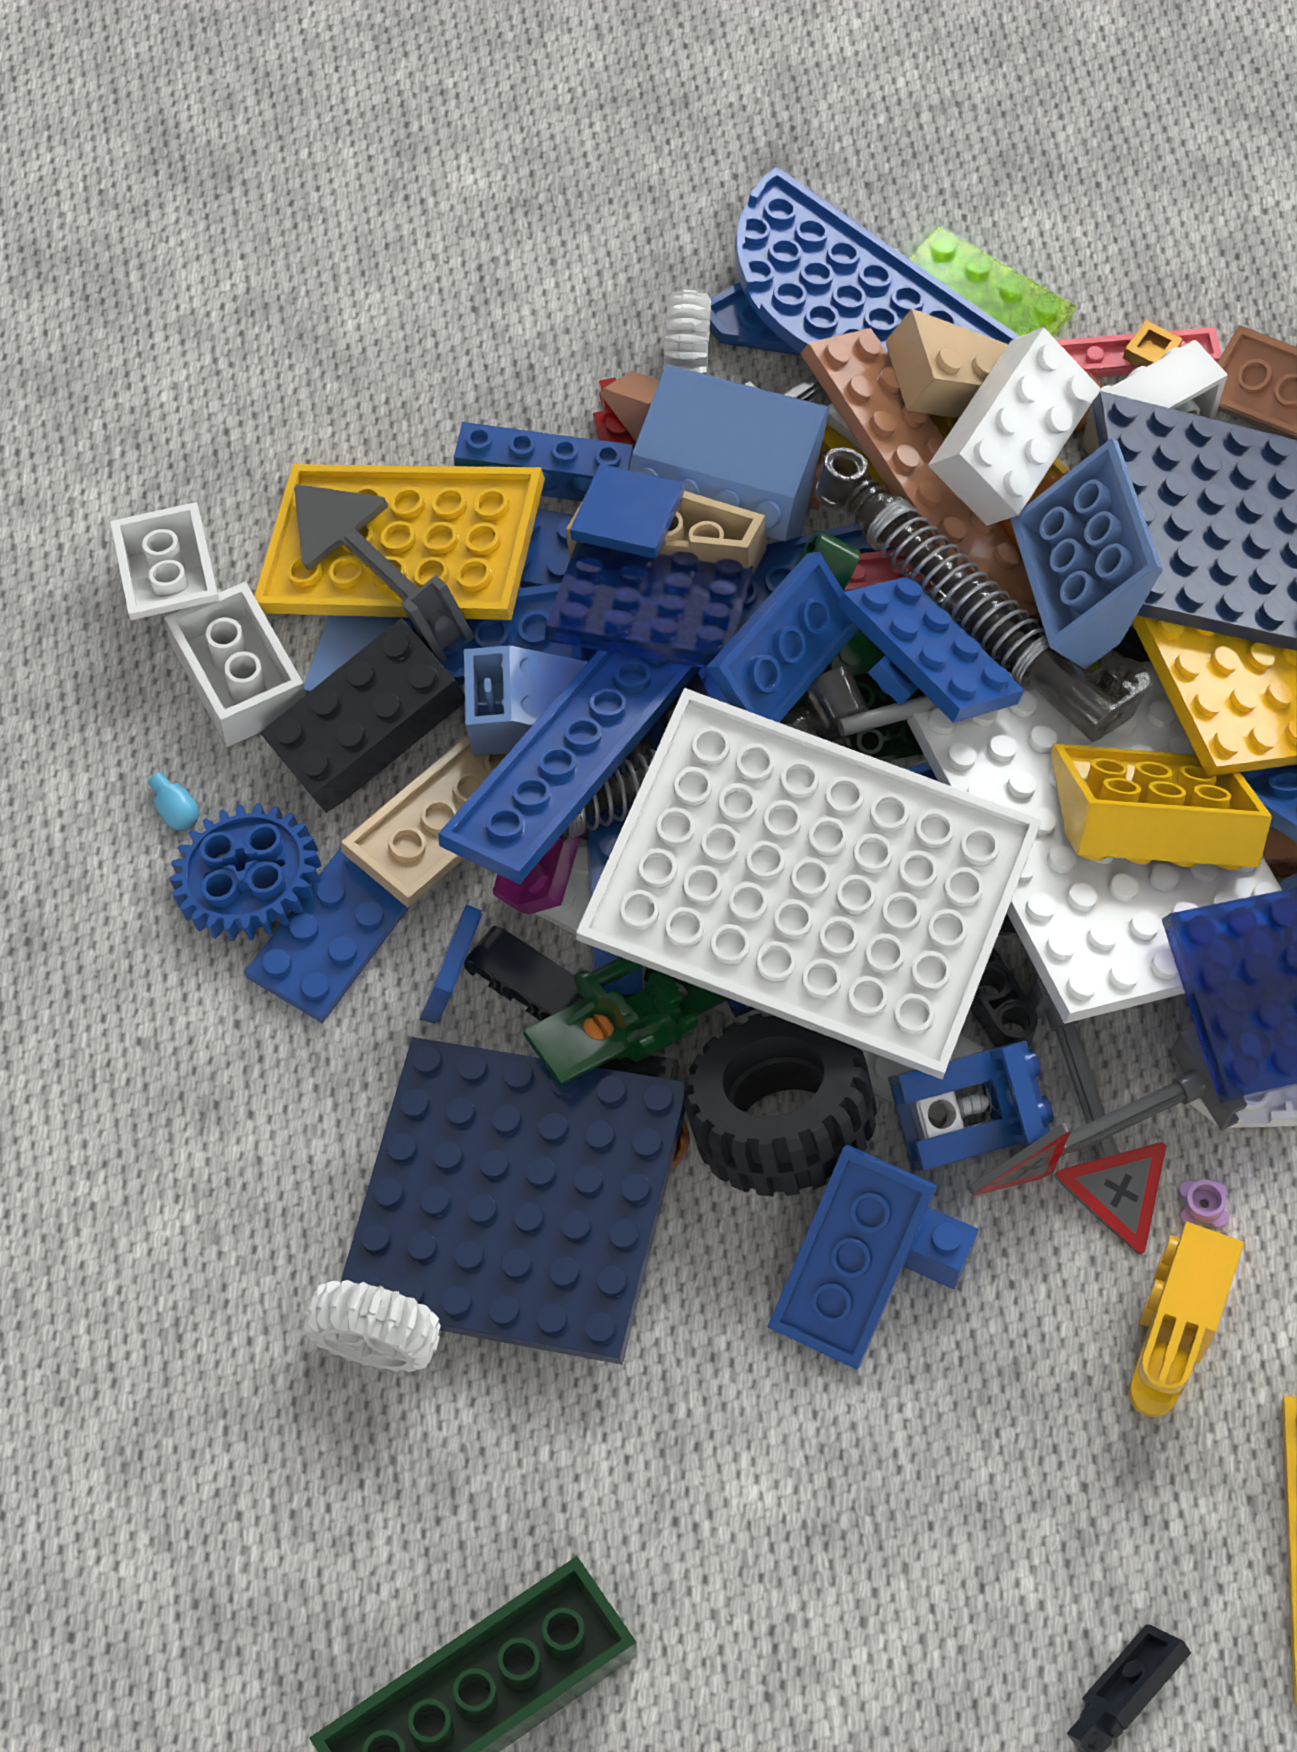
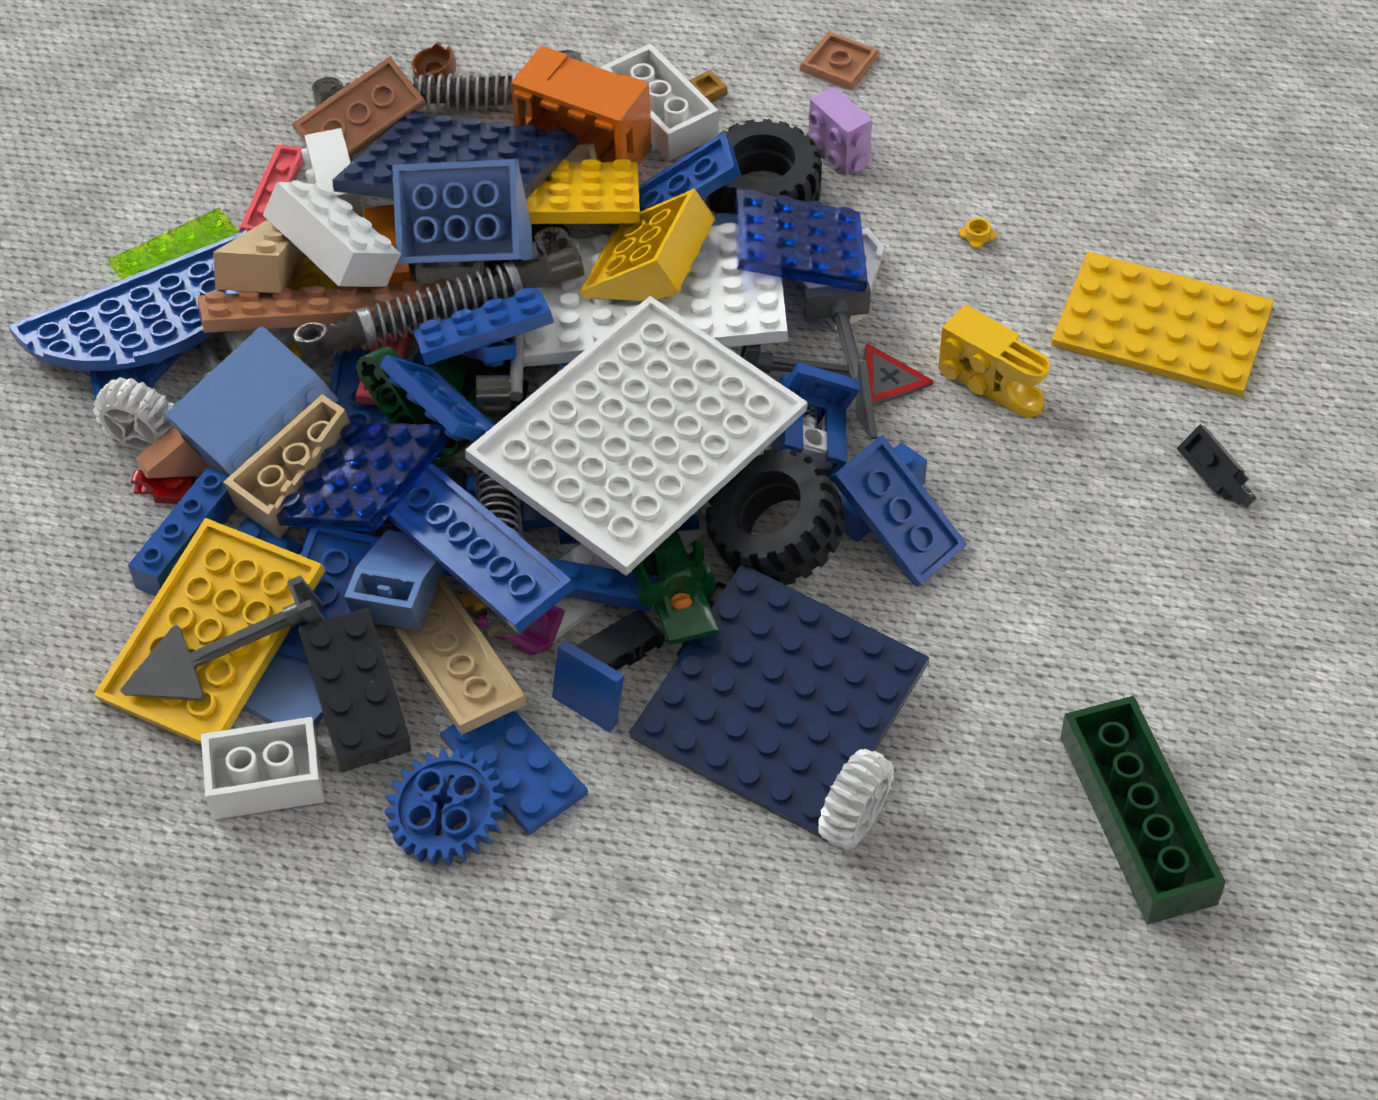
camera: 70 degrees left, 10 degrees down
(164, 561) = (152, 789): white slope -> none
(174, 803) = (360, 846): medium azure cylinder -> none
(627, 511) = (277, 470): blue tile -> none
(1150, 344) = (282, 170): plate -> none
(1205, 1190) = (915, 333): lavender plate -> none

